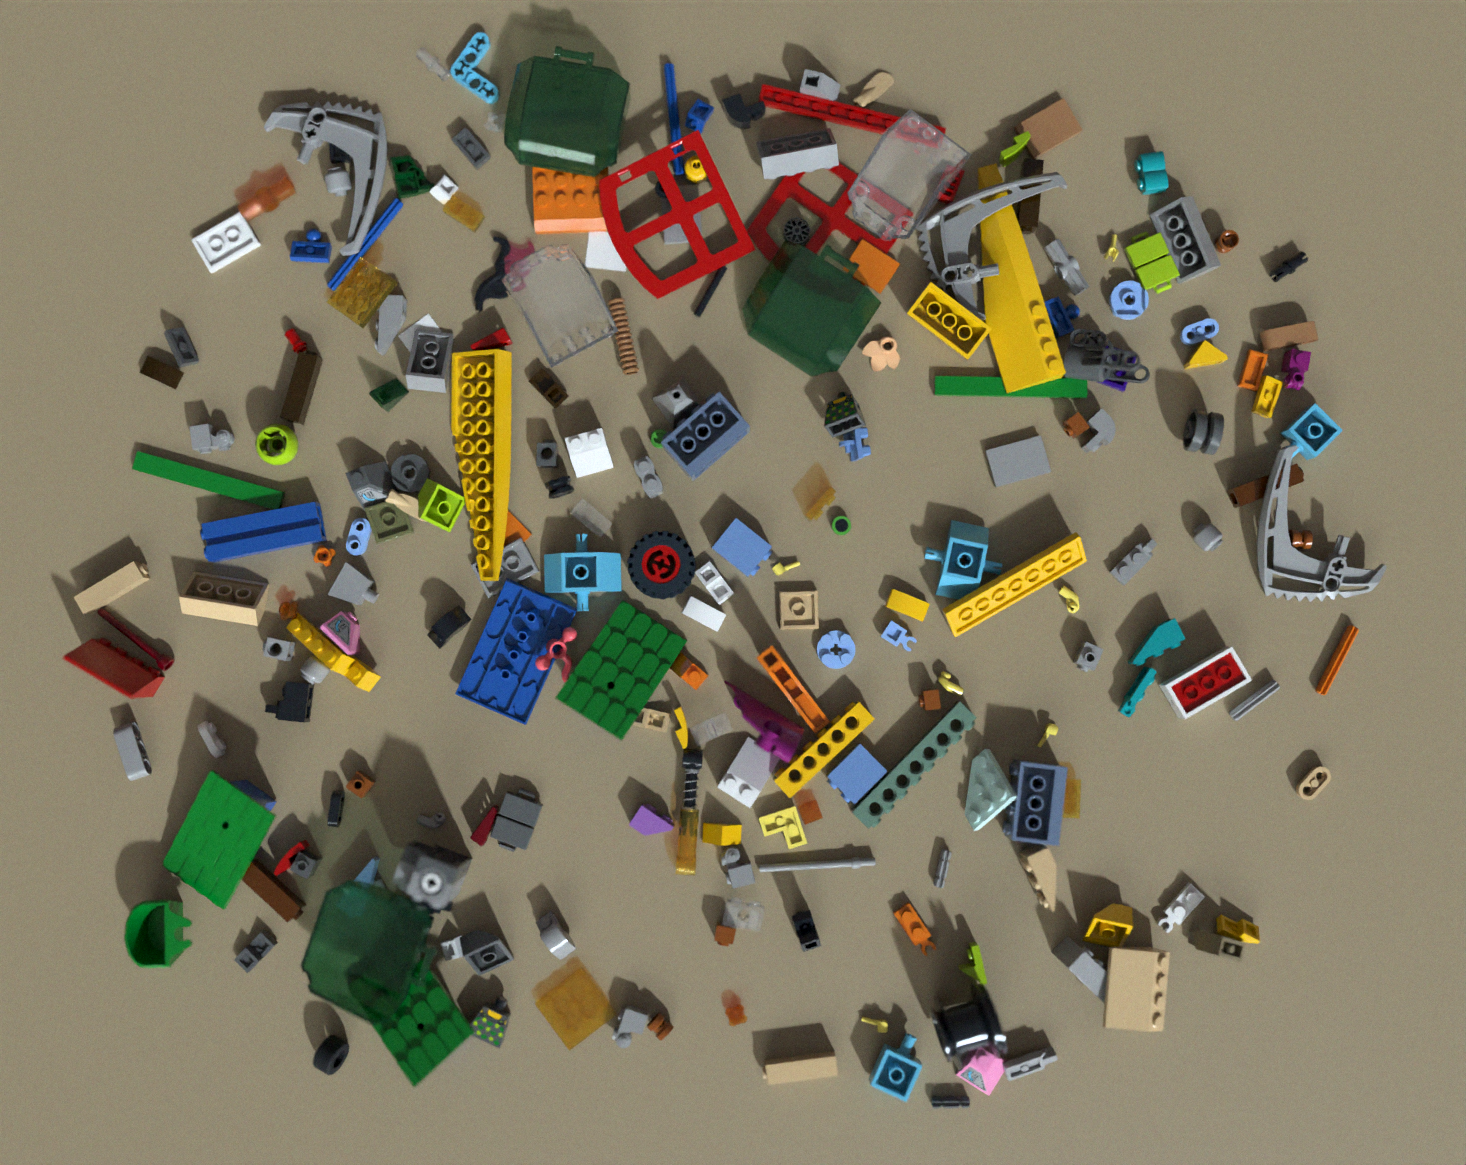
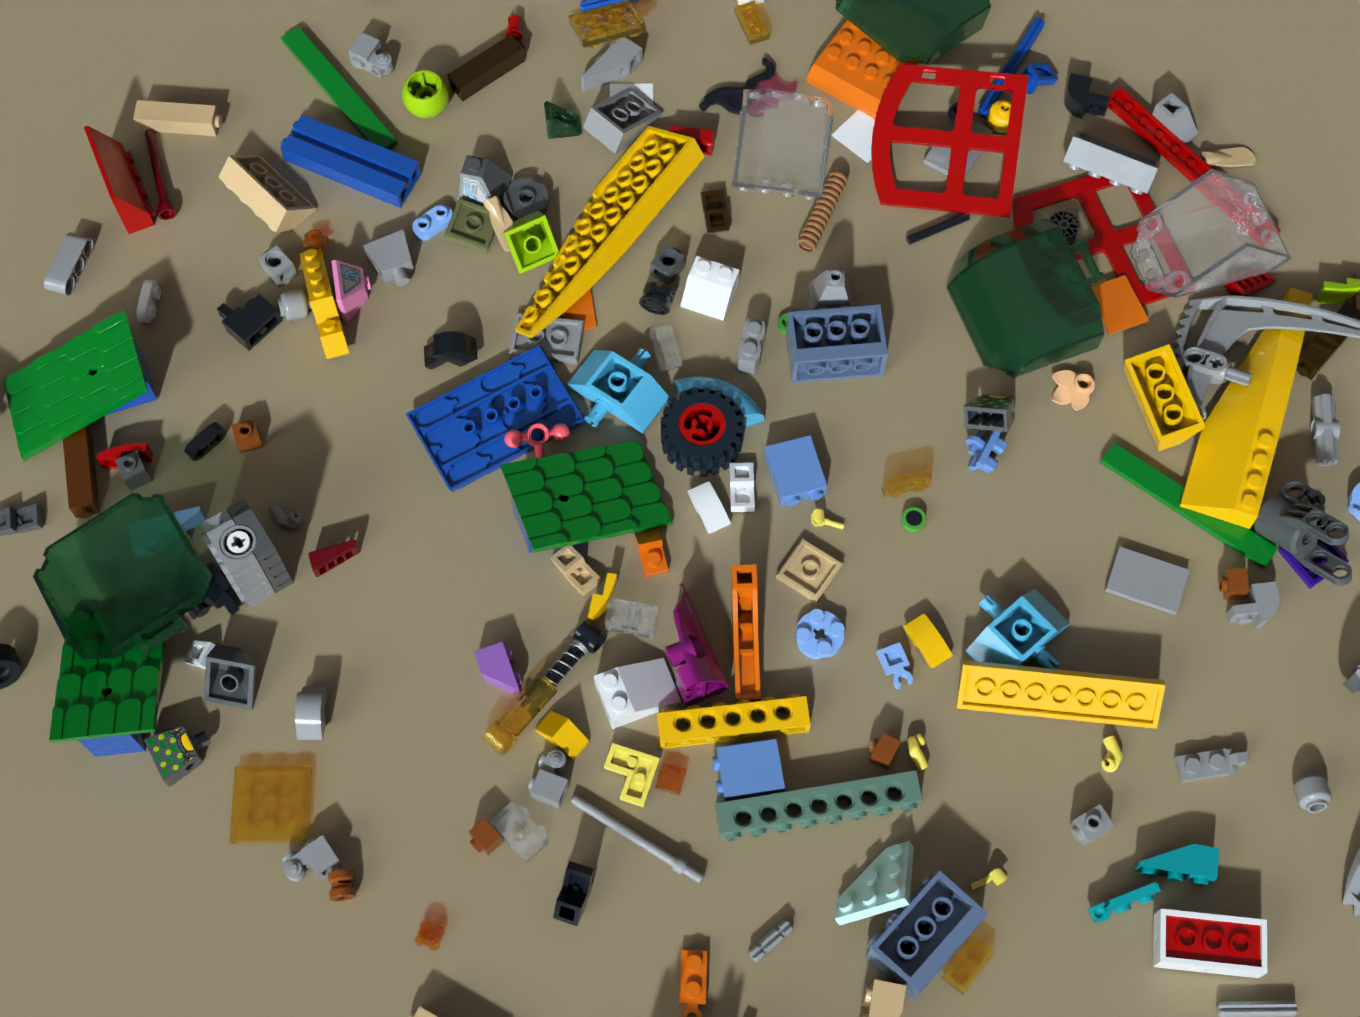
camera: 35 degrees right, 20 degrees down
(321, 550) = (387, 211): orange plate -> none
(516, 820) = (377, 569): dark grey piece -> none
(653, 522) = (748, 407): none -> medium azure brick
(1061, 316) = (1285, 469): blue plate -> none

